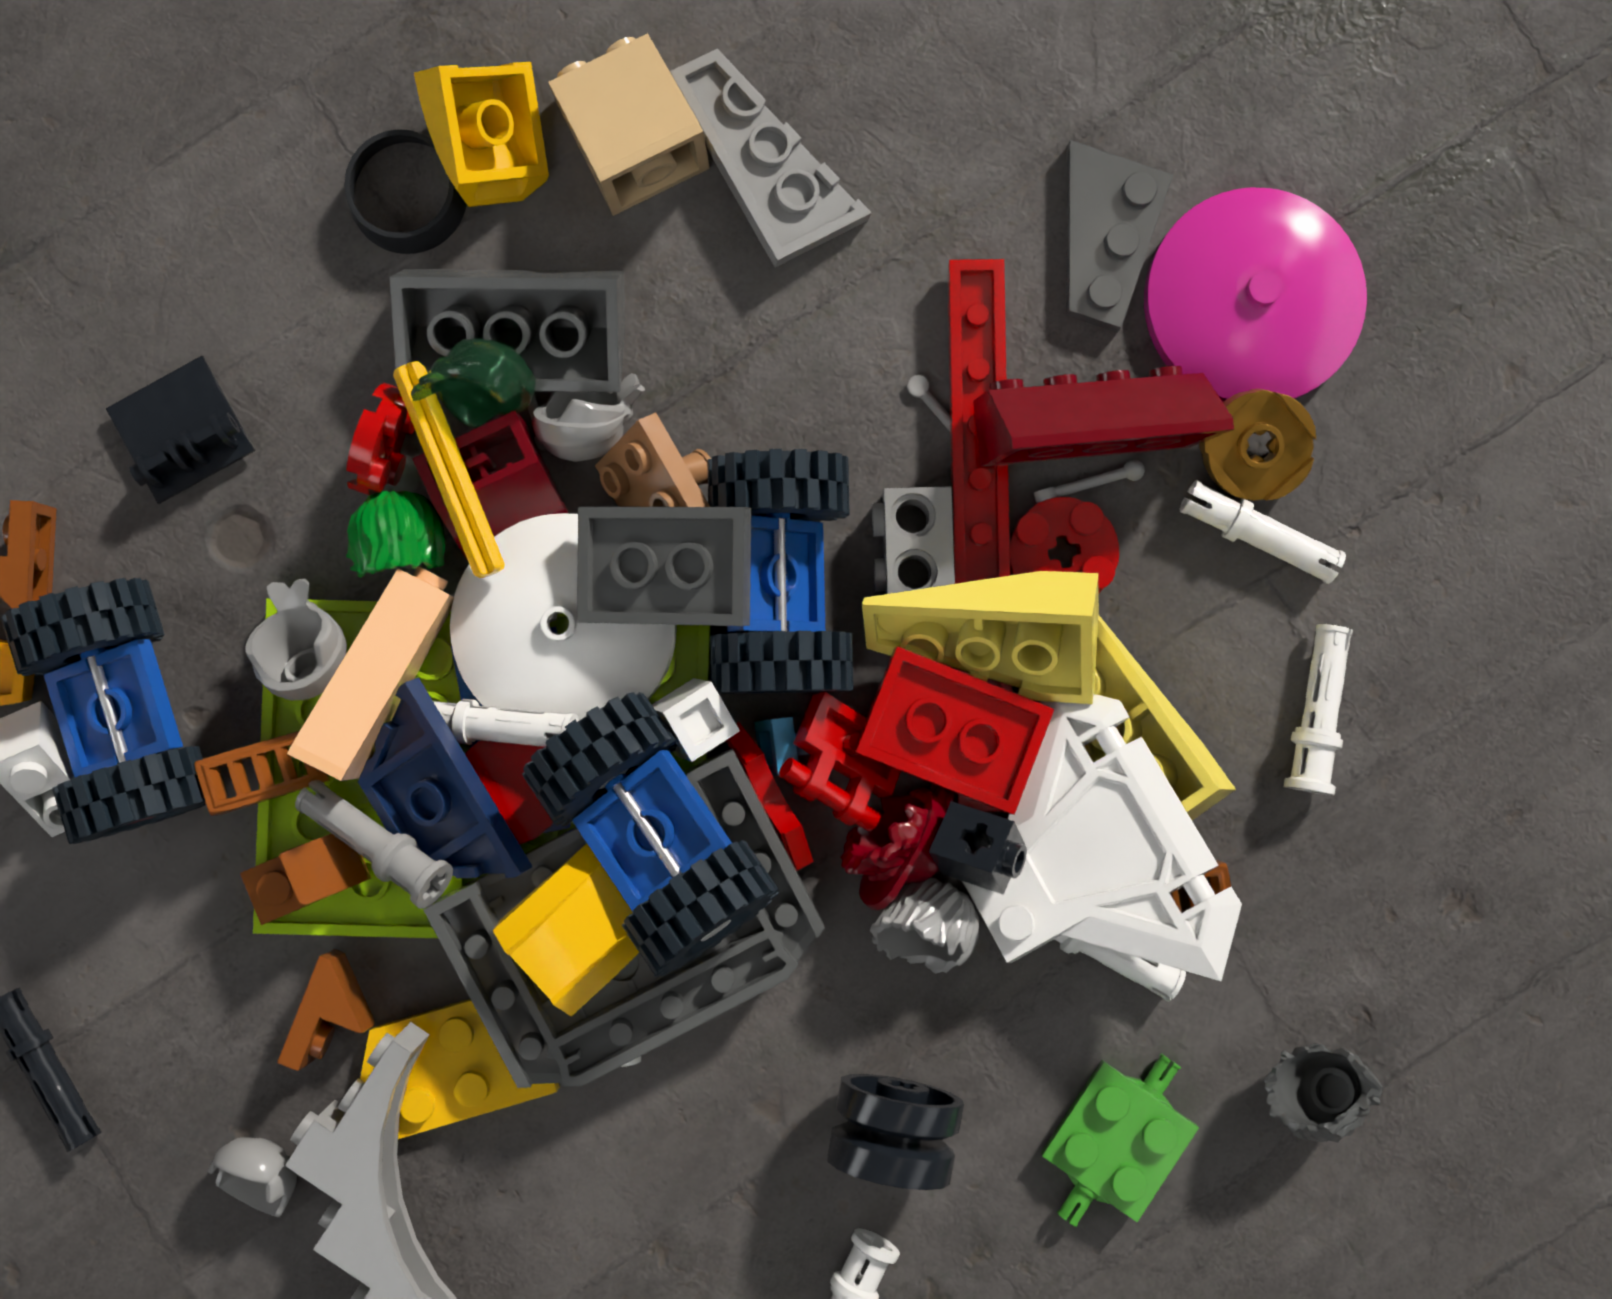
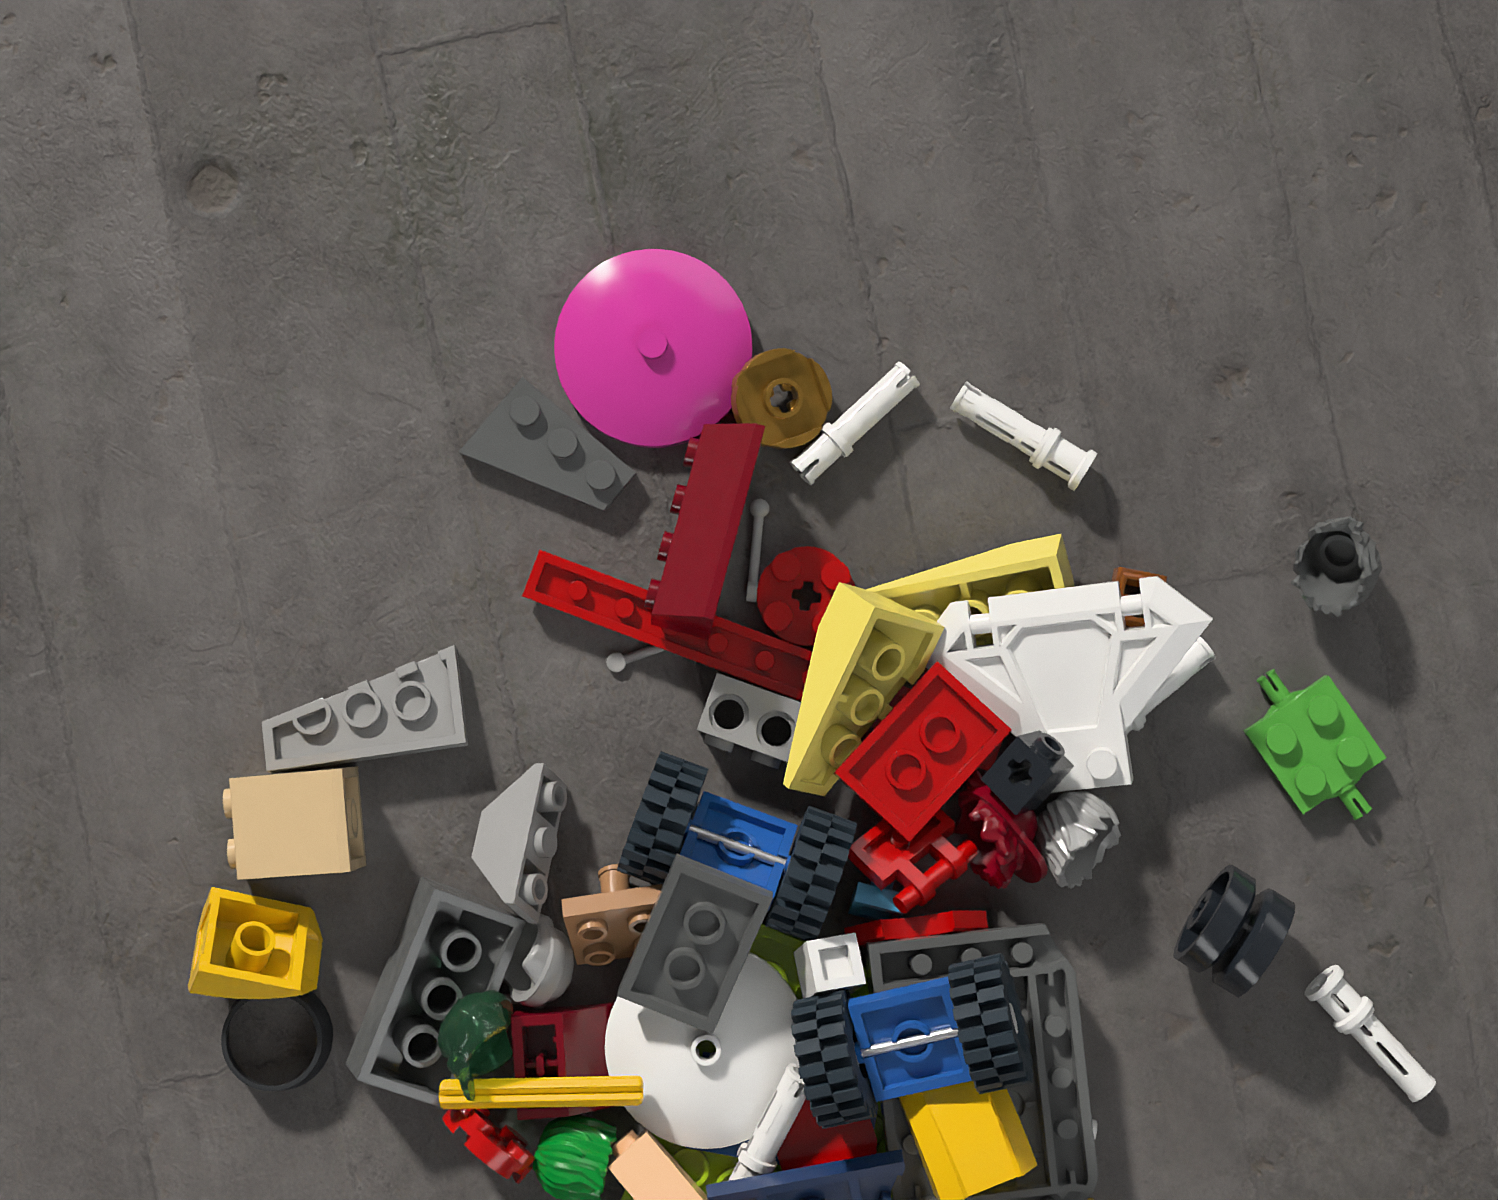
camera: 70 degrees left, 0 degrees up
(700, 352) = (520, 839): none -> light grey slope

